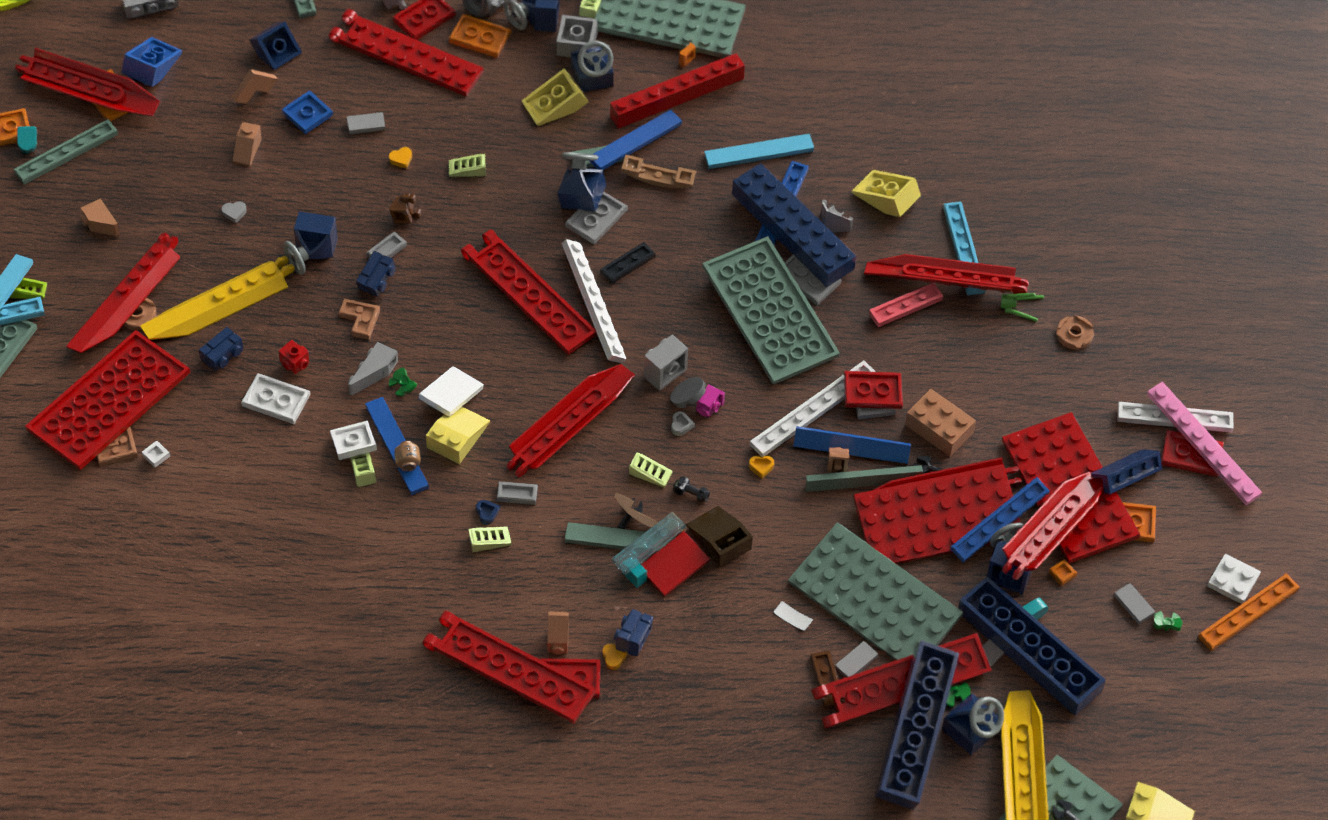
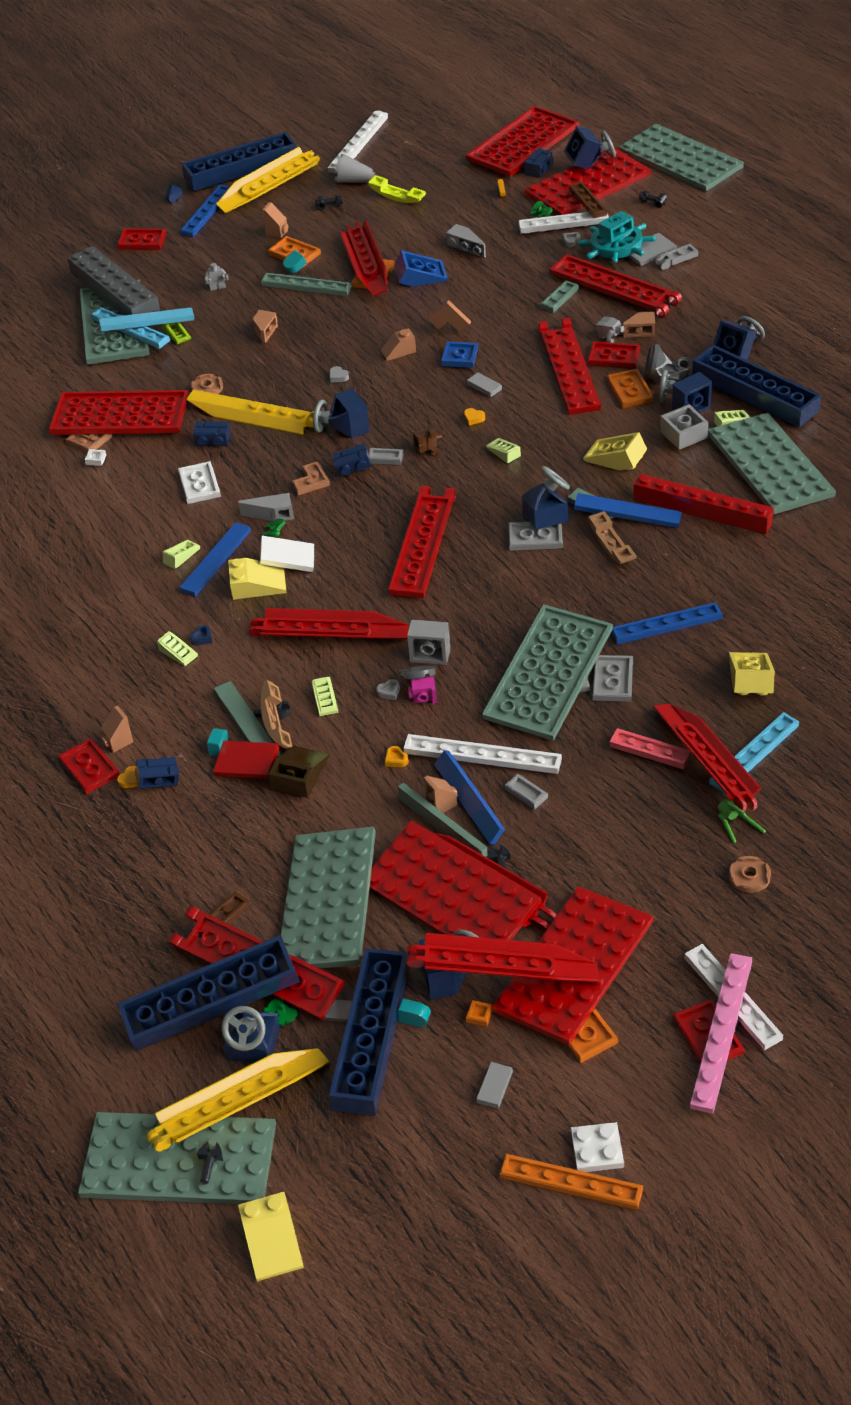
camera: 60 degrees right, 10 degrees down
(127, 294) = (215, 370): red hinge -> none
(276, 45) = (499, 308): dark blue slope -> none
(294, 357) = (237, 466): red brick -> none
(353, 440) = (194, 533): white plate -> none
(407, 456) = (202, 563): medium nougat head -> none
(511, 667) = (63, 727): red hinge -> none
(517, 493) = (234, 641): light grey tile -> none
(593, 66) = (666, 449): piece -> none
(594, 301) = (451, 576): white plate -> none
(627, 263) = (510, 575): black tile -> none
(648, 543) = (242, 728): clear light blue tile -> none
(682, 485) = (328, 724): black bar -> none
(687, 55) = (744, 489): orange tile -> none
(759, 151) = (704, 581): medium azure tile -> none
(792, 616) = (266, 860): white sticker -> none
(794, 225) = (645, 635): dark blue brick -> none
(834, 220) = (682, 654): light grey slope -> none
(856, 660) = (257, 924): light grey tile -> none
(873, 389) = (536, 776): red tile -> none
(940, 422) = (549, 837): nougat brick -> none
(1003, 516) = (482, 928): blue tile -> none
(1128, 470) = (628, 991): dark blue panel -> none
(1168, 623) = (493, 1118): green piece -> none

